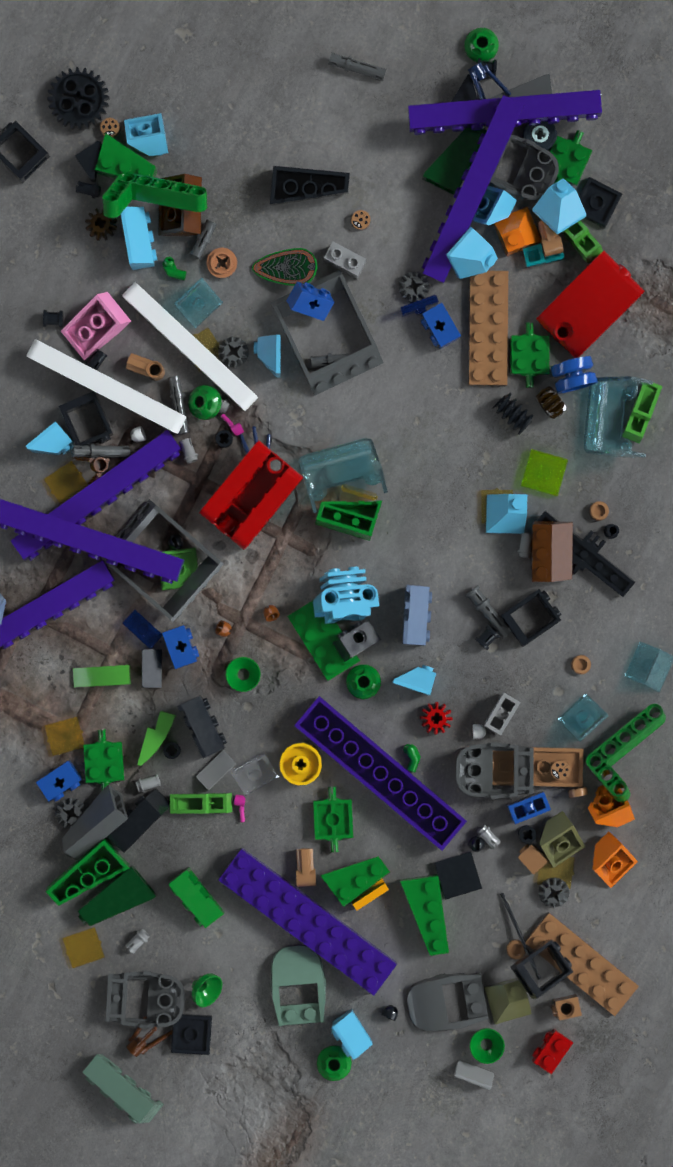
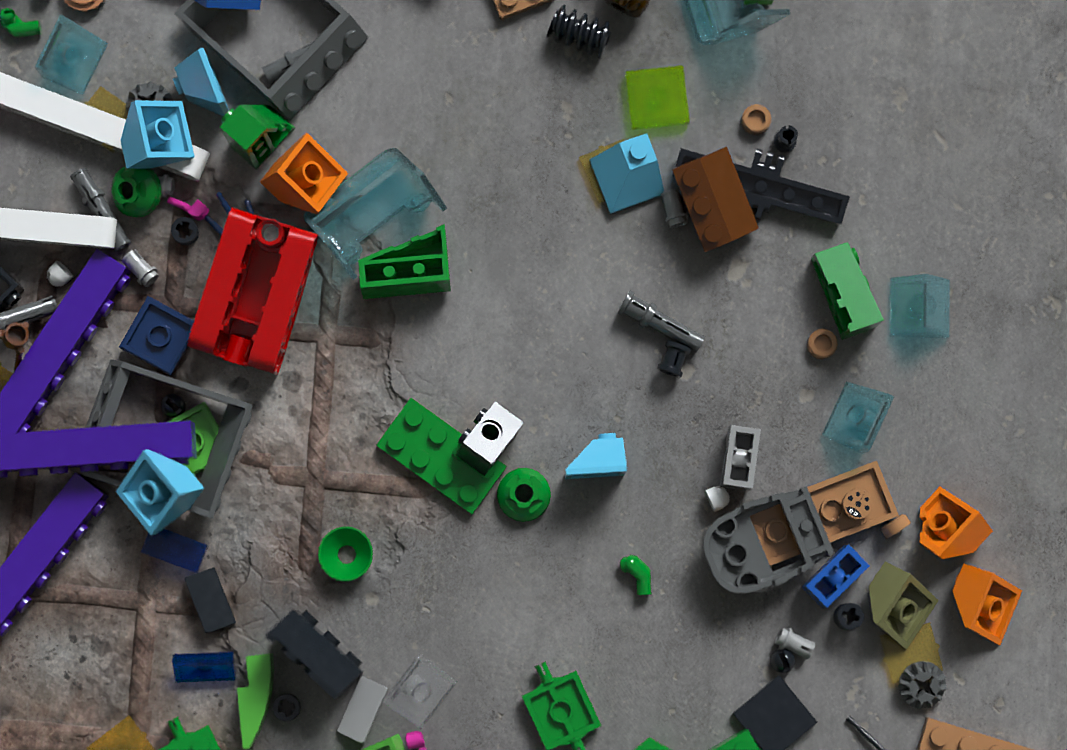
camera: 25 degrees left, 5 degrees down
(101, 676) = (141, 640): bright green slope -> none
(132, 706) = (204, 667): none -> clear blue plate
(144, 366) = (29, 175): medium nougat piece -> none
(148, 593) = (158, 490): none -> medium azure slope
(172, 640) = (223, 545): blue brick -> none
(183, 497) = (158, 336): none -> dark blue plate
(222, 628) = (290, 500): dark orange hinge -> none
(230, 375) = (155, 134): none -> medium azure slope
(271, 613) = (351, 450): dark orange hinge -> none
(292, 396) = (255, 131): none -> green wedge
(296, 774) = (464, 643): yellow wheel -> none
(309, 435) = (304, 176): none -> orange slope
(345, 596) = (447, 380): medium azure piece -> none
(359, 492) = (407, 227): clear yellow piece -> none
(380, 773) = (602, 614): dark purple brick -> none
(416, 615) = (559, 366): sand blue wedge -> none
(440, 722) = (640, 498): red gear -> none
(513, 626) = (712, 332): black window -> none
(532, 858) = (871, 648): medium nougat brick -> none
(609, 638) = (846, 290): none -> wedge
(622, 748) = (932, 438): green beam -> none

